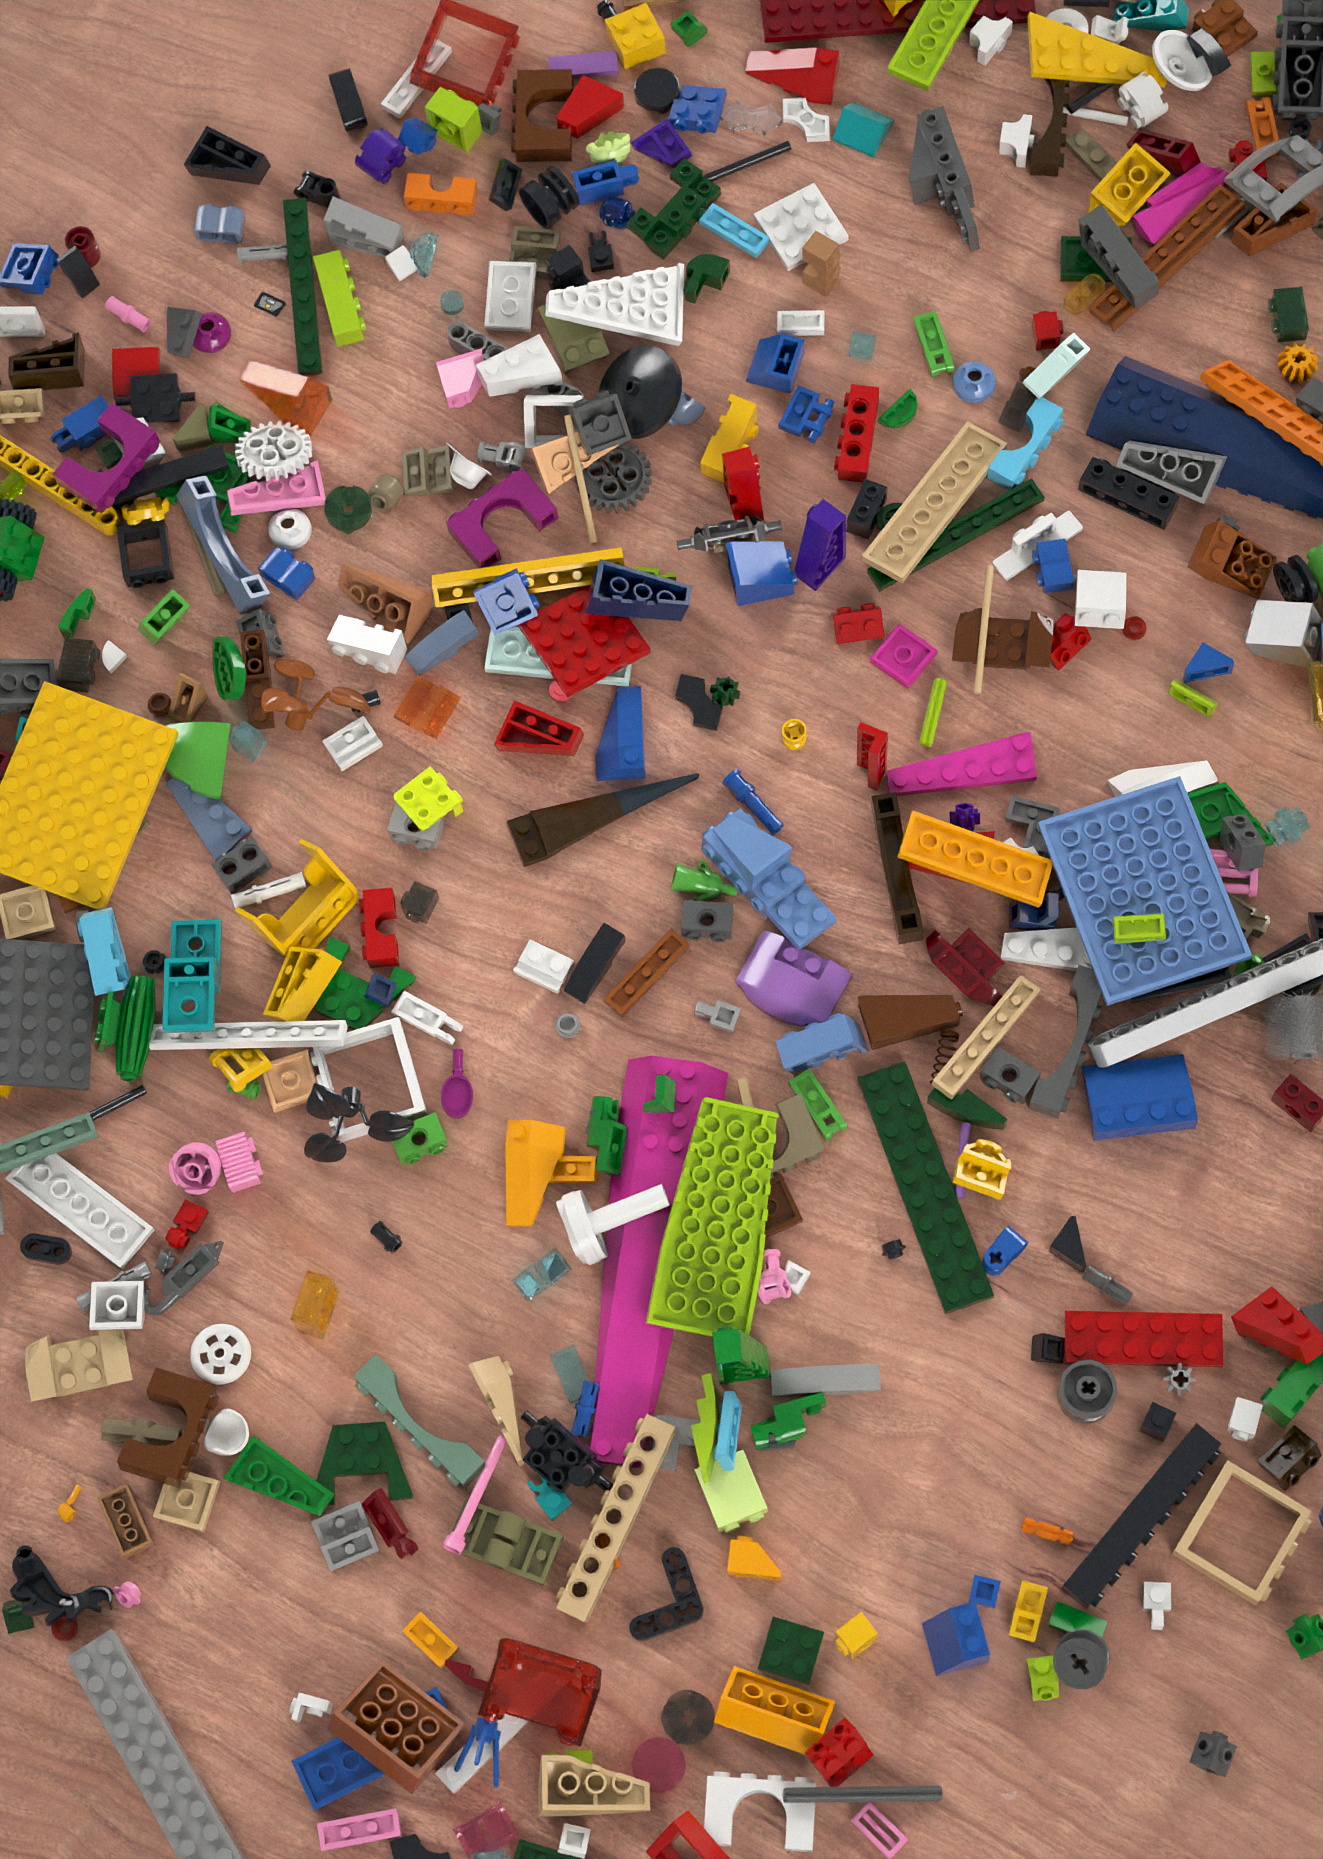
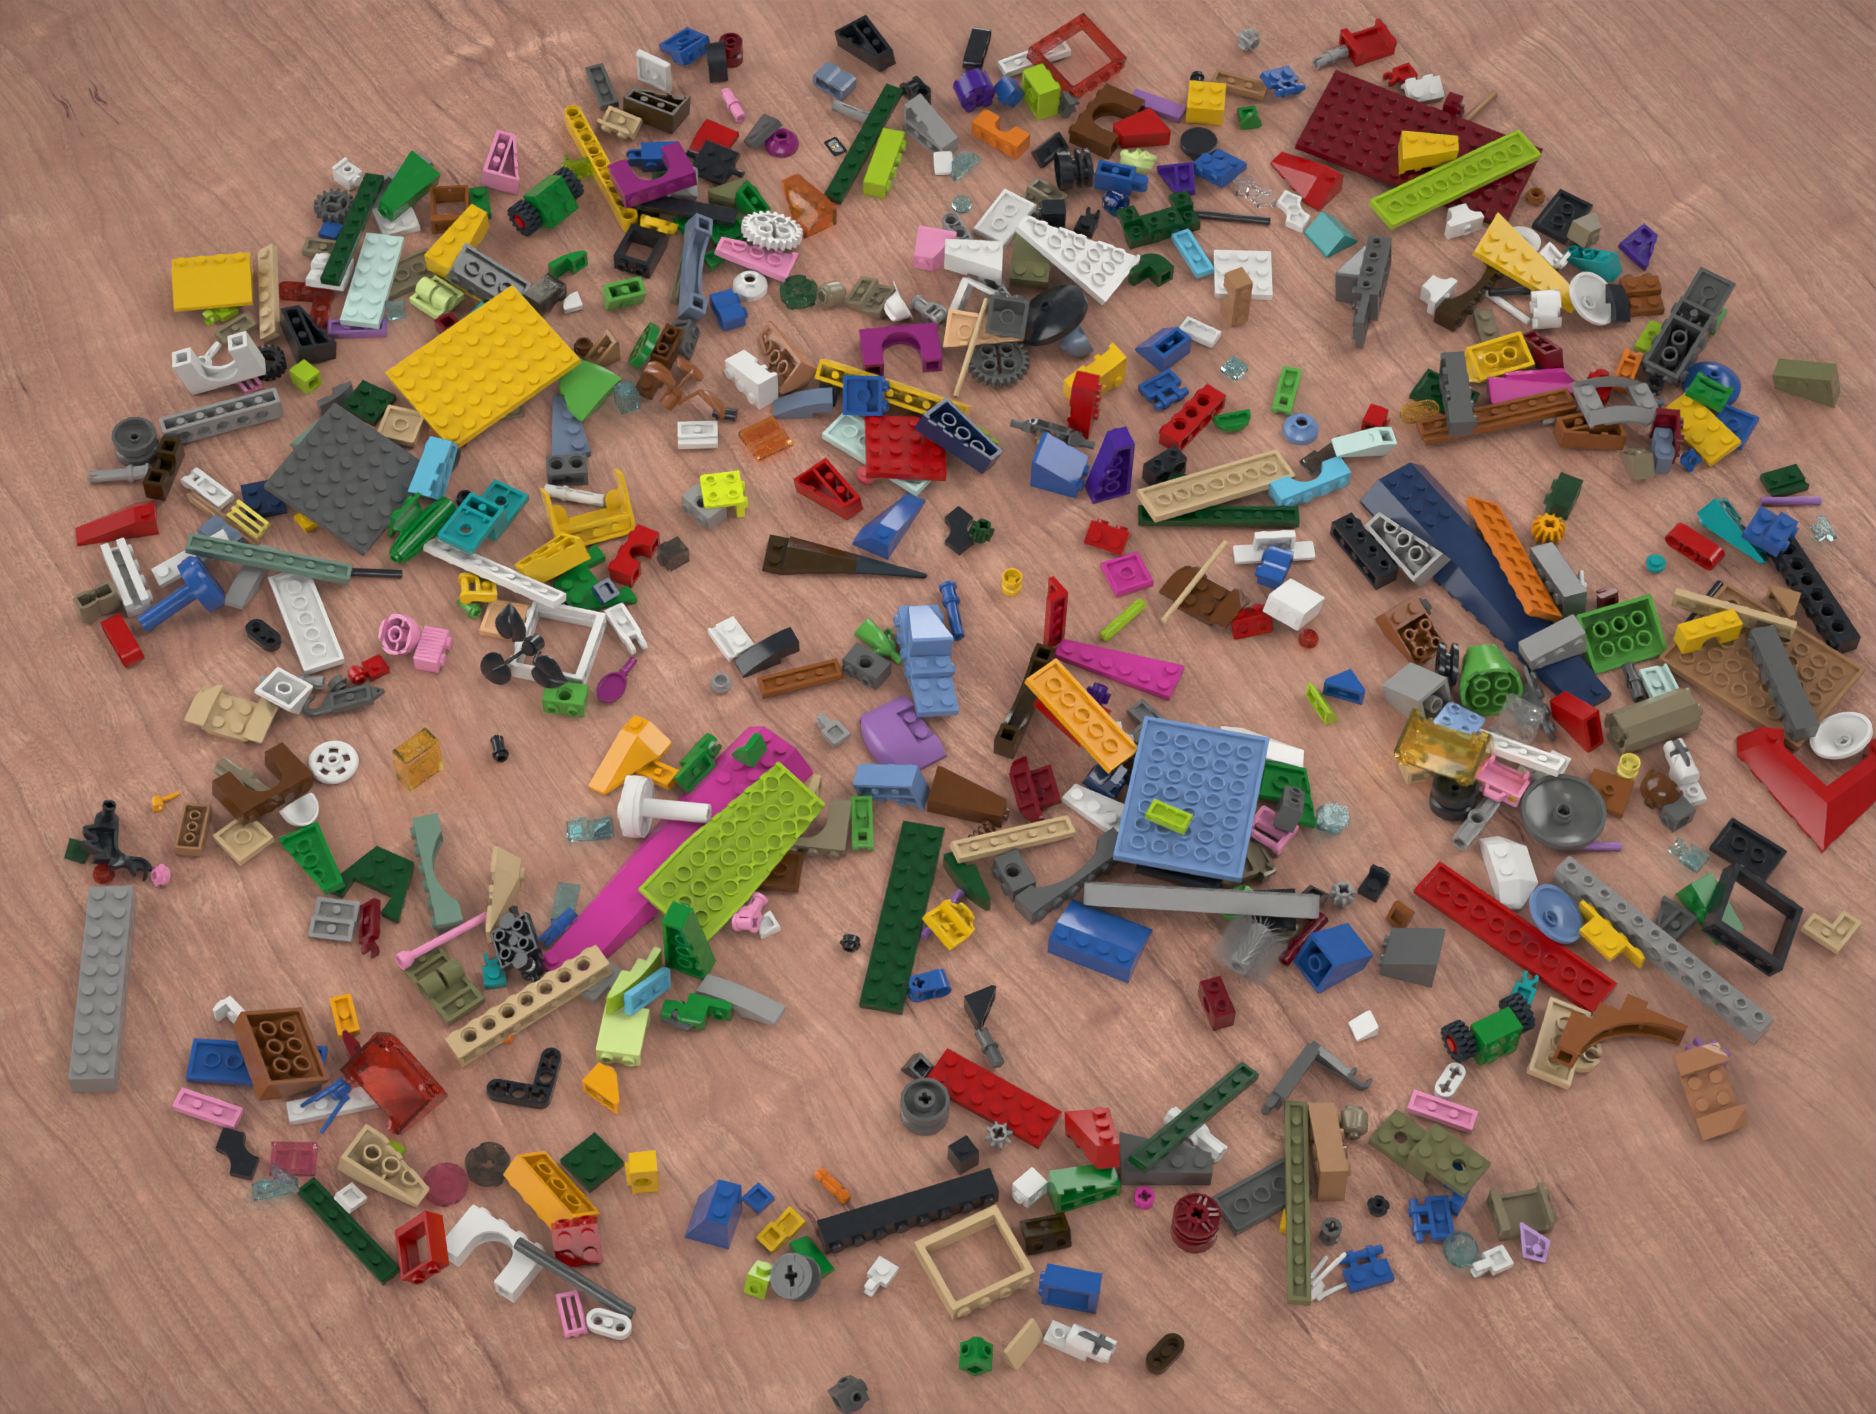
camera: 20 degrees right, 15 degrees down
(925, 1819) = (610, 1323): none -> white plate

